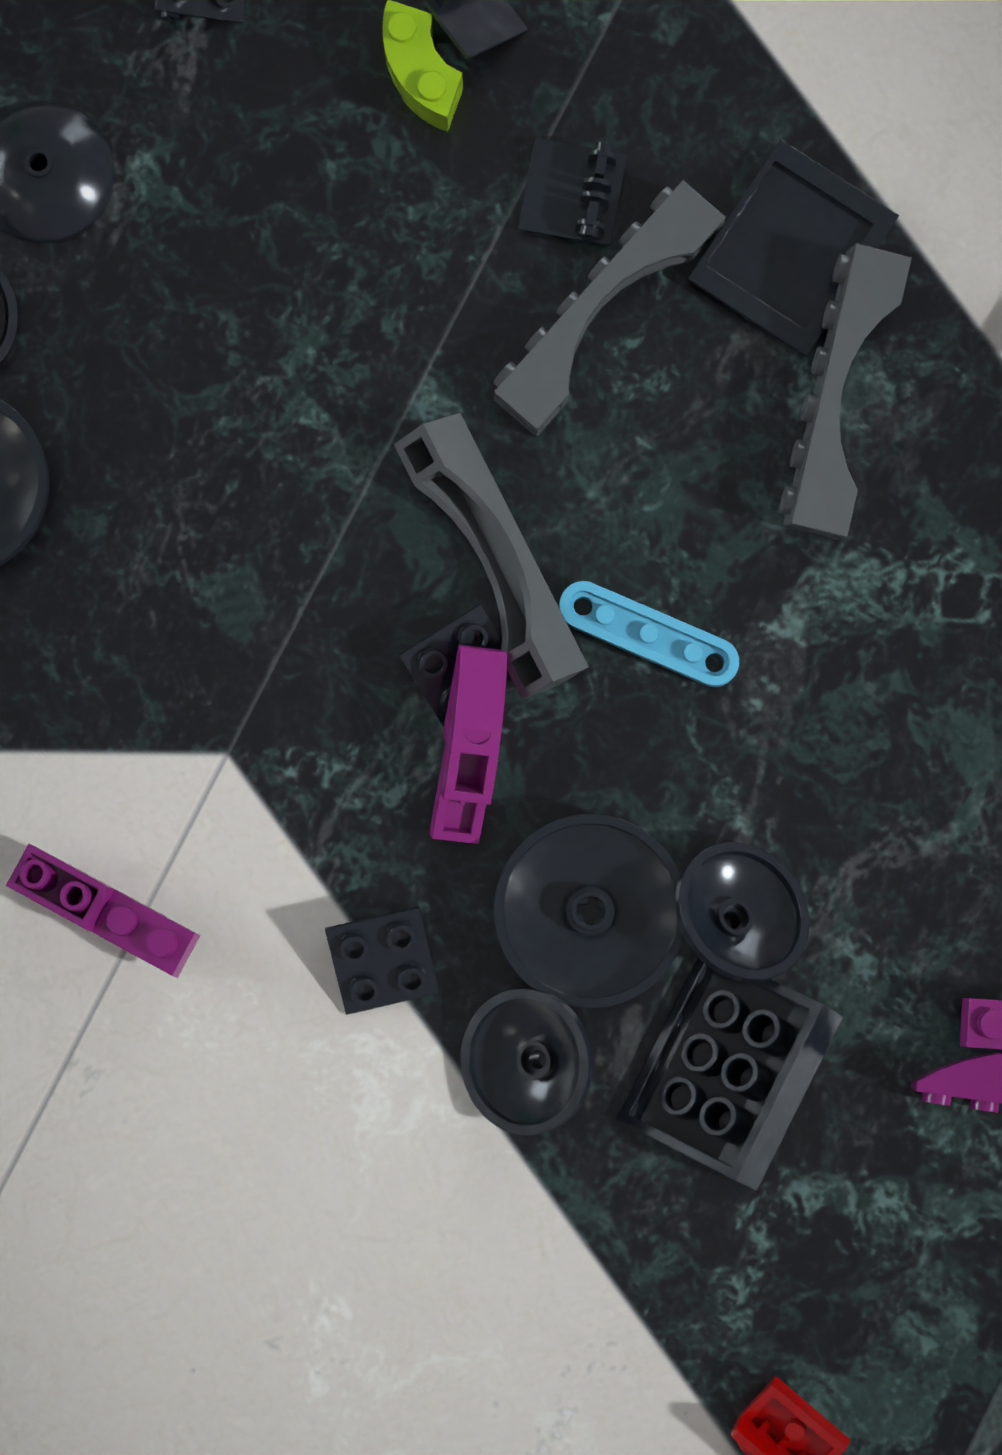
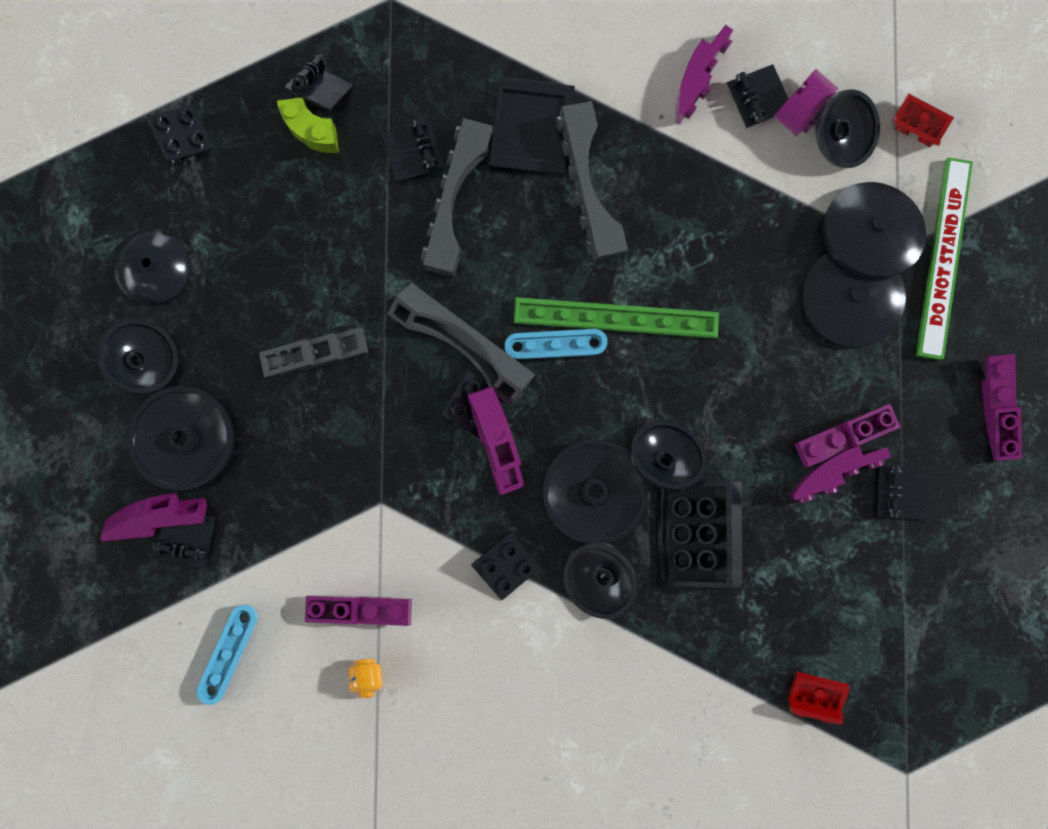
camera: 25 degrees left, 0 degrees up
(58, 1027) = (365, 678): none -> light orange head
(239, 447) = (313, 352): none -> dark grey slope
(773, 640) = (616, 318): none -> bright green tile

